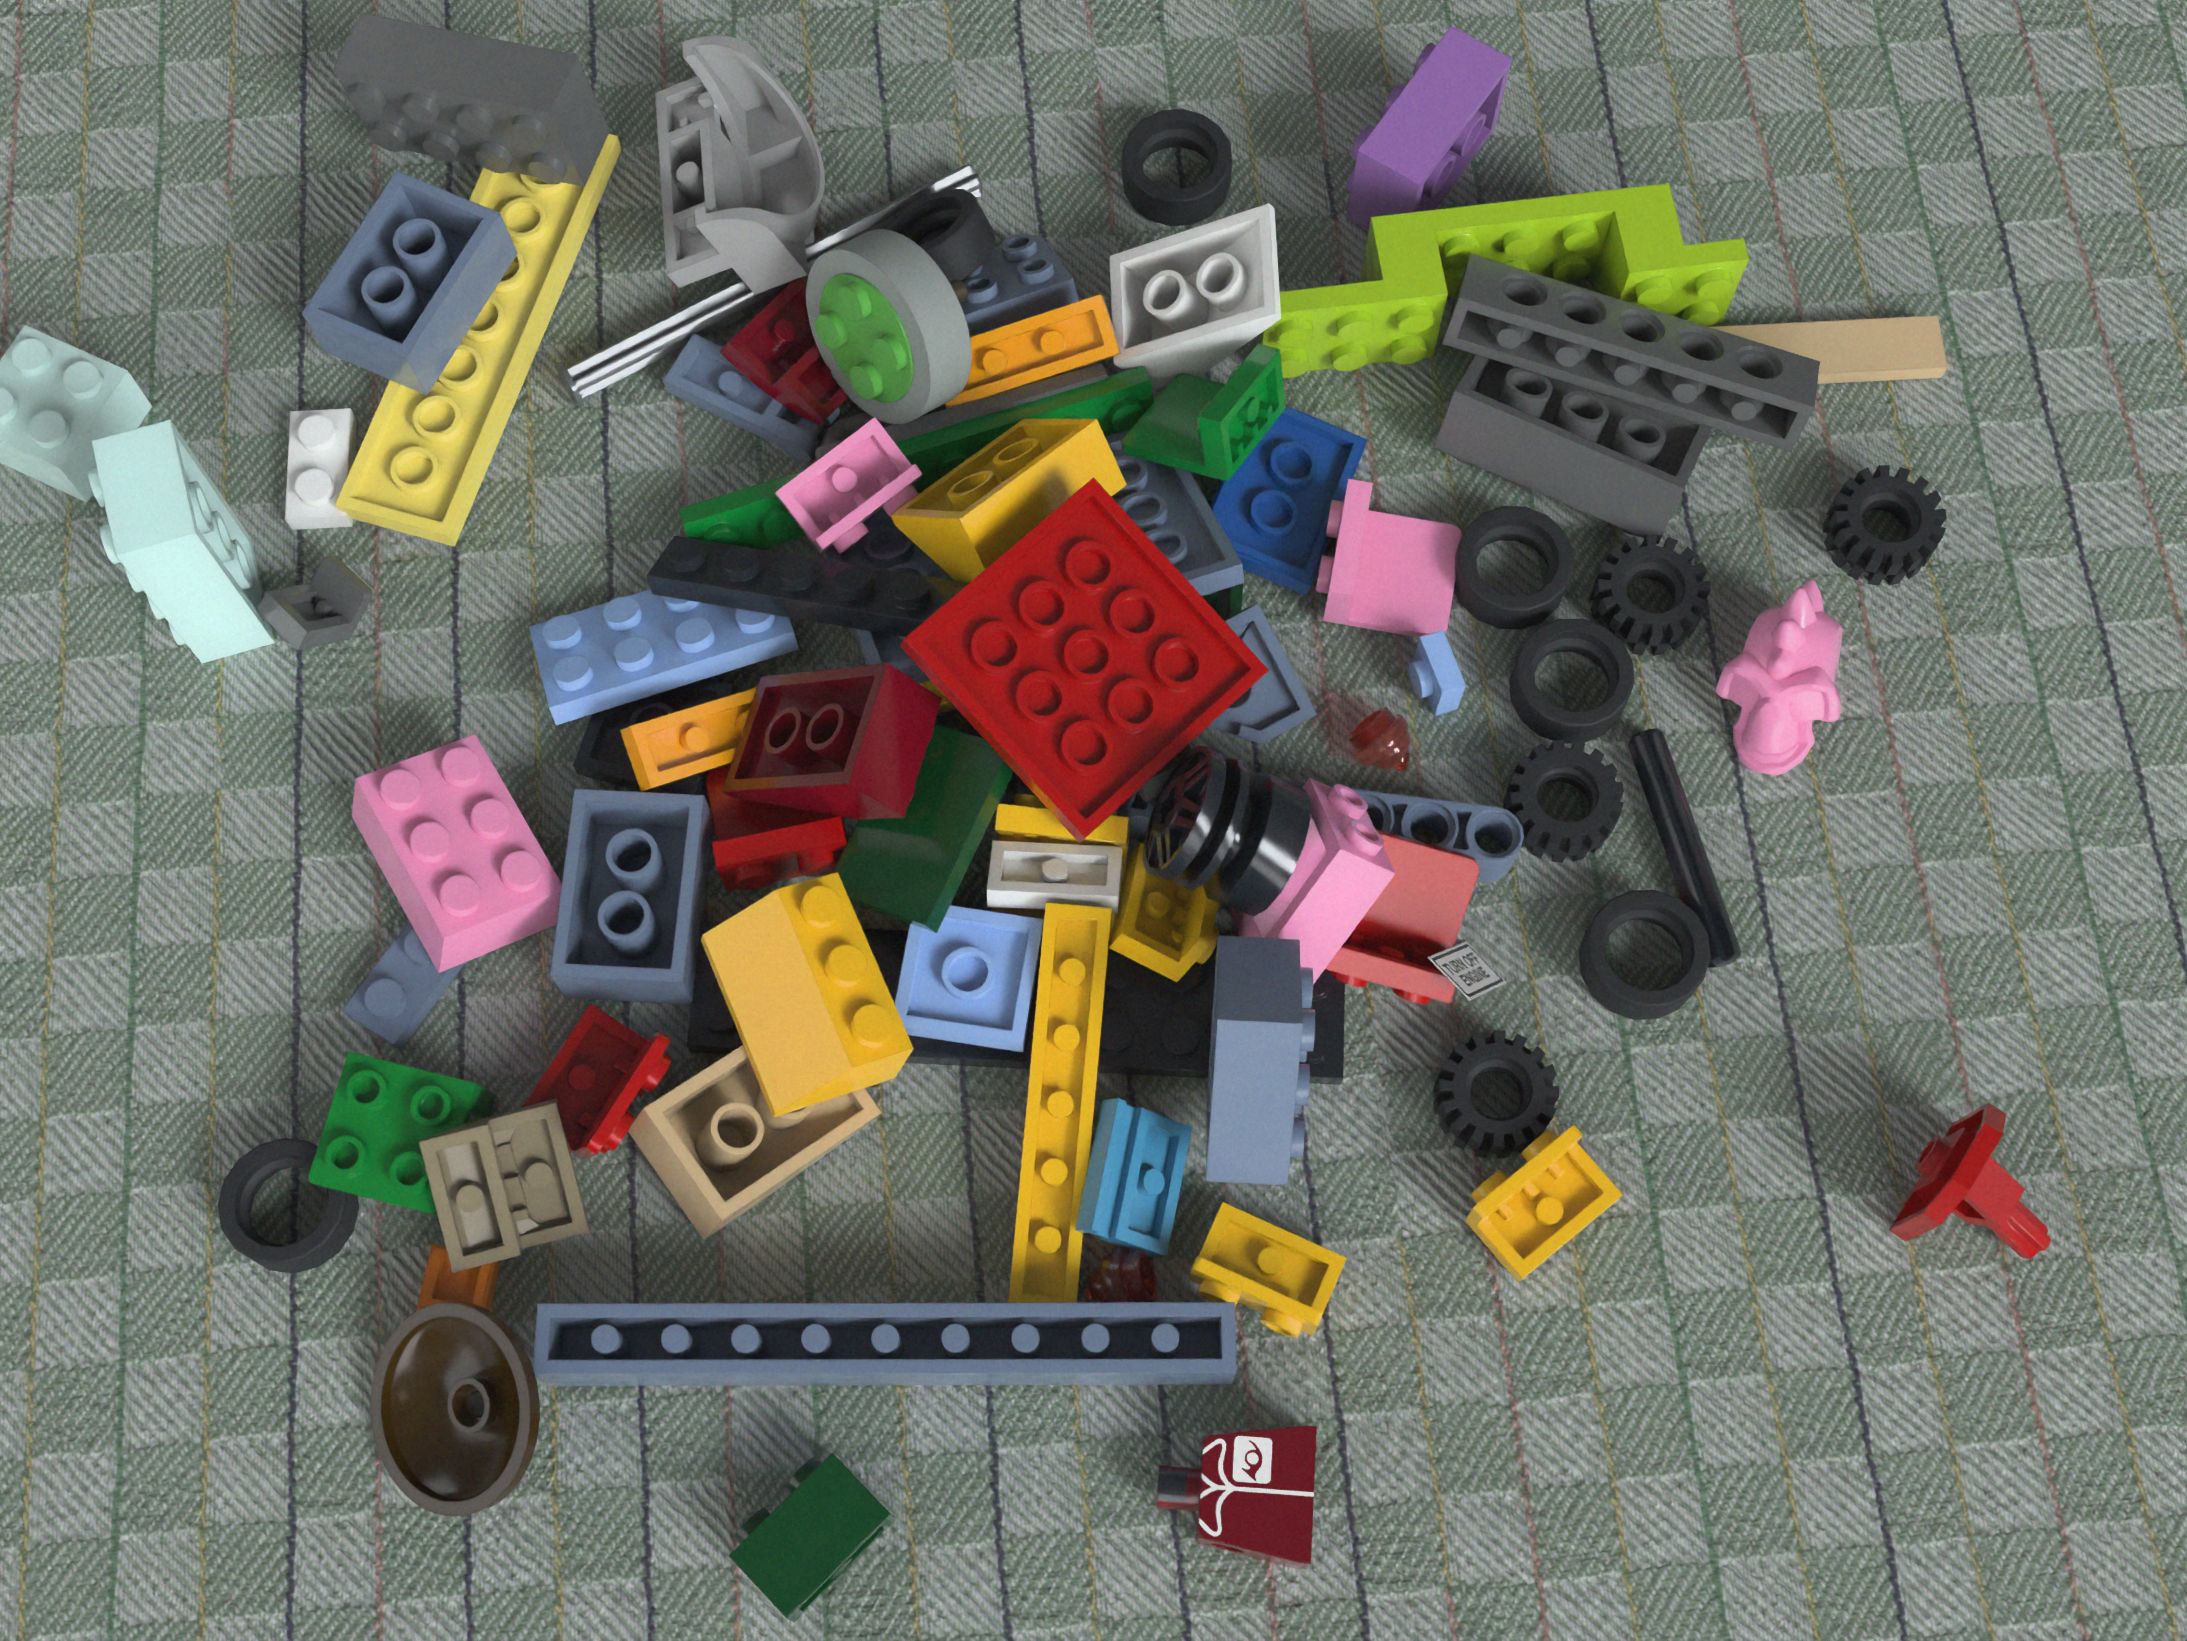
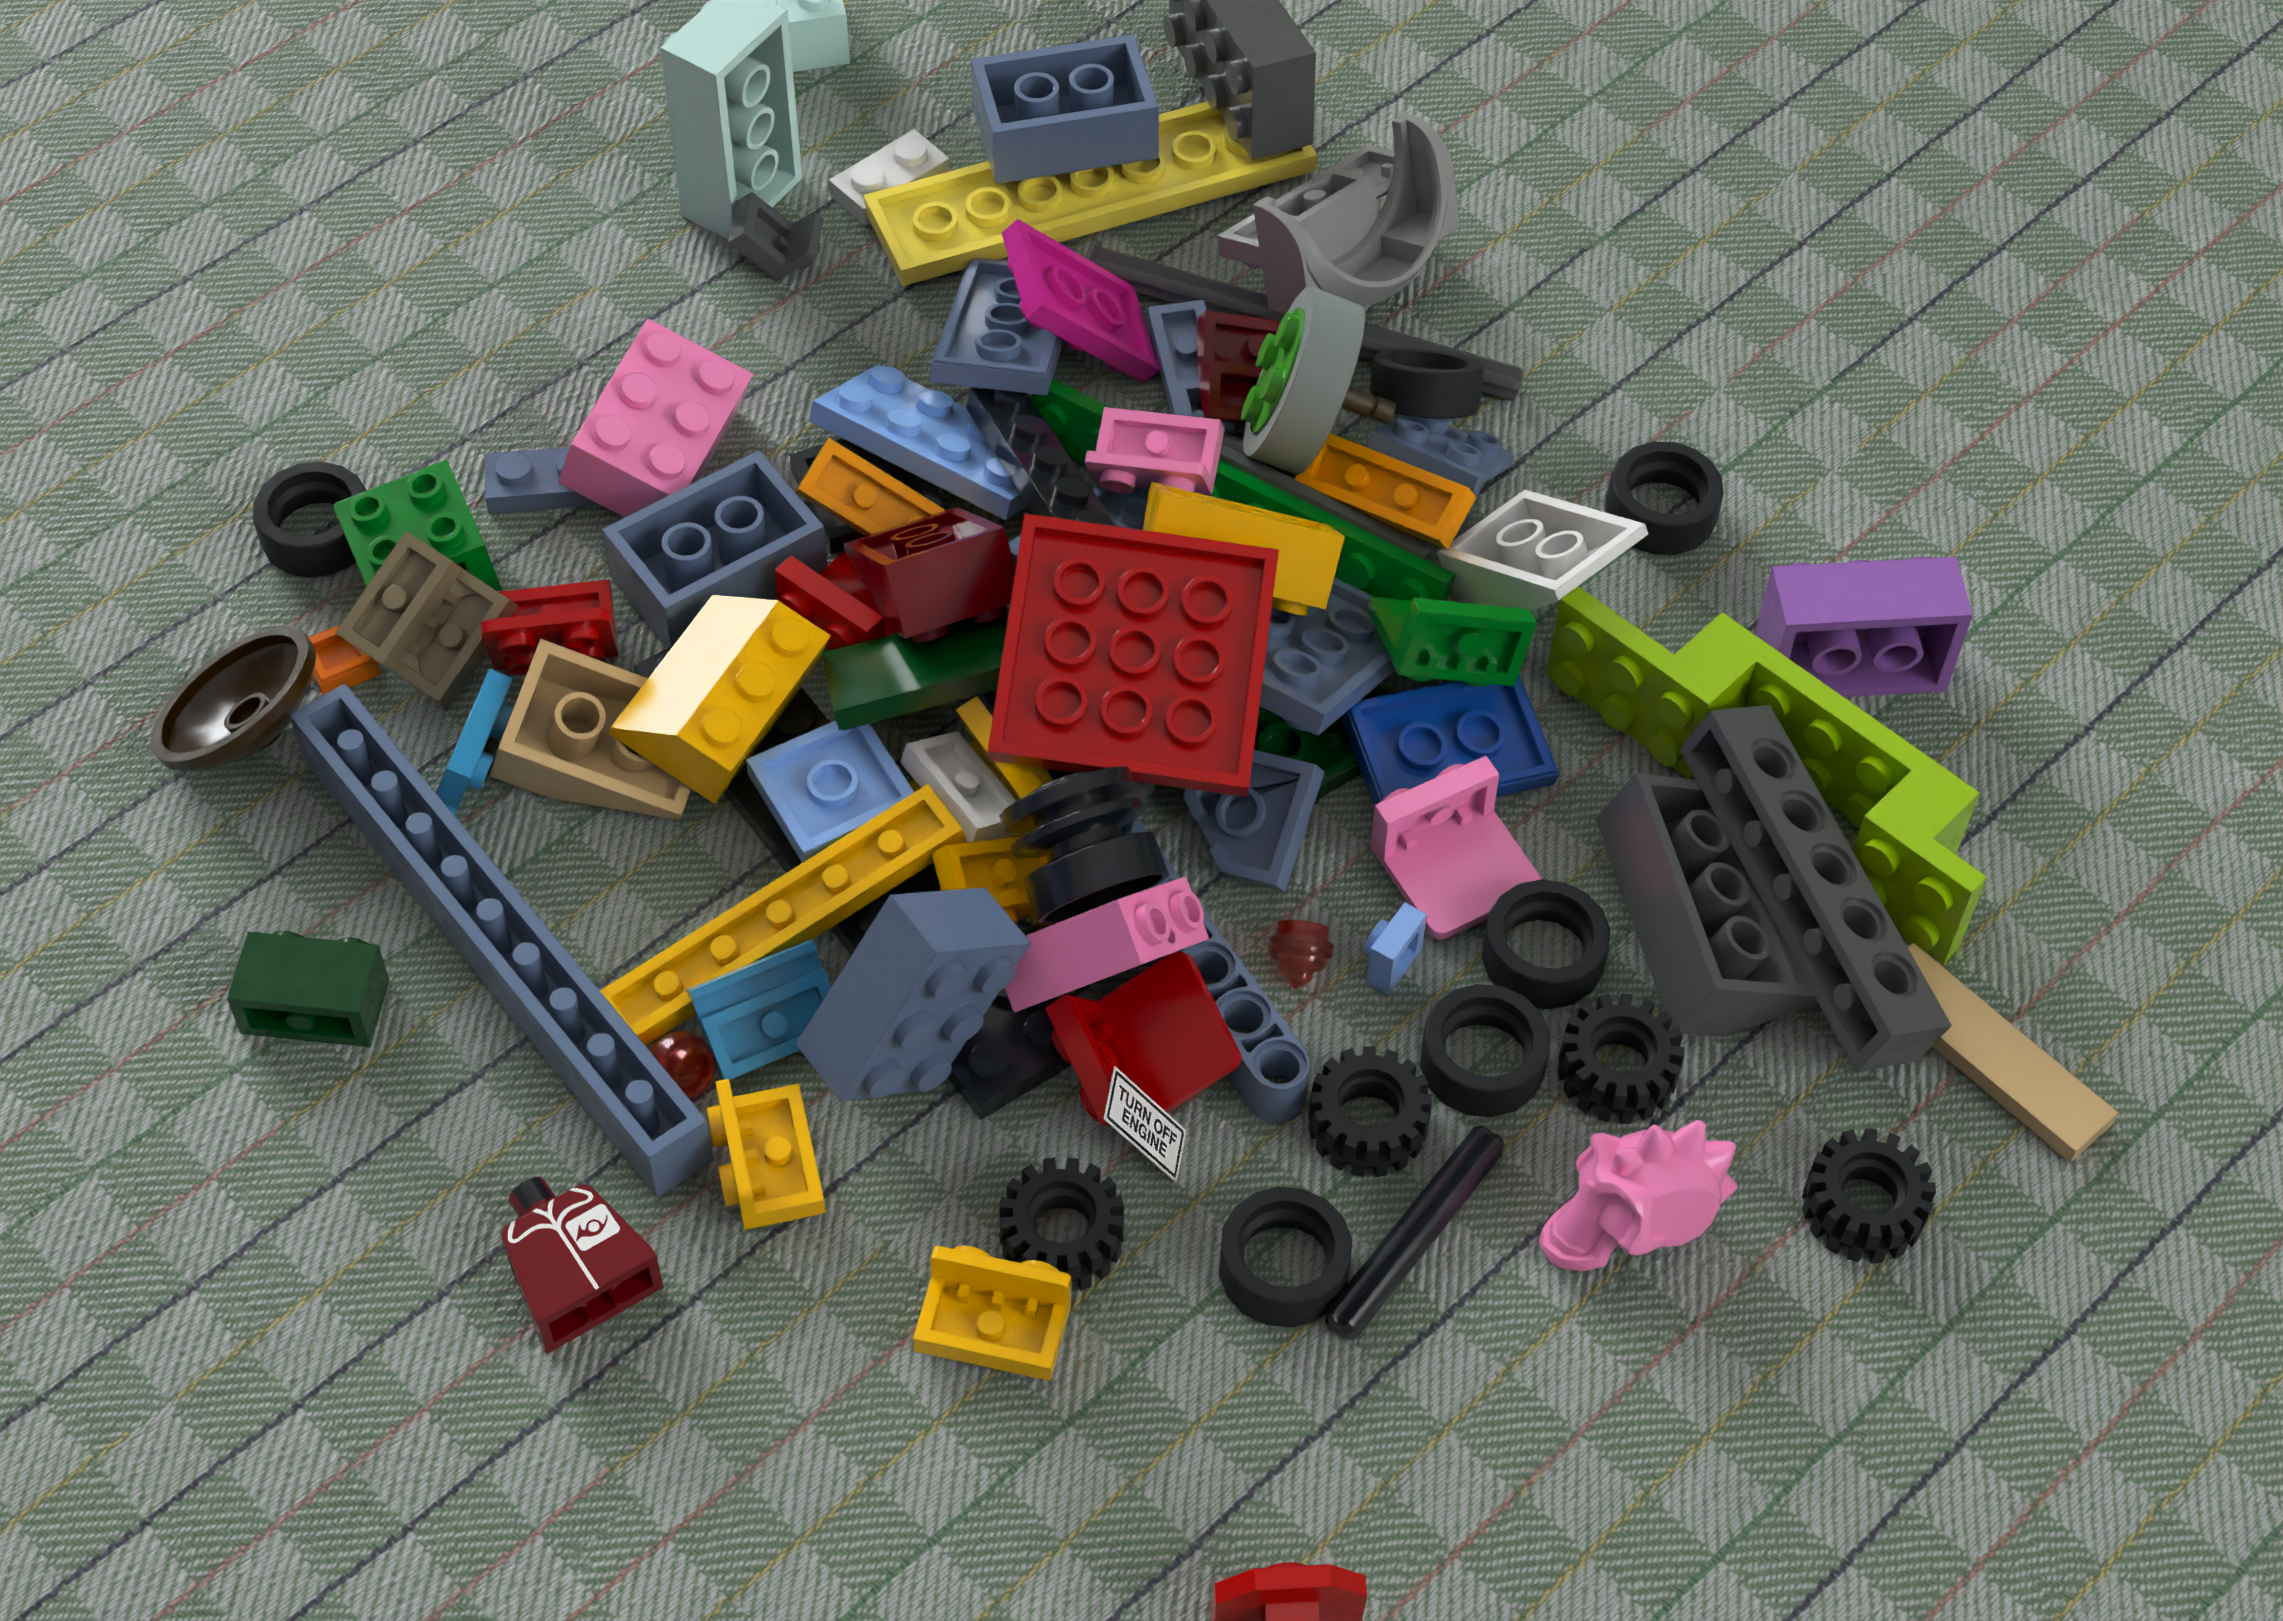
camera: 50 degrees right, 15 degrees down
(595, 500) = (990, 340): none -> sand blue tile
(630, 428) = (1079, 302): none -> dark pink plate
(671, 1236) = (469, 761): none -> dark azure plate

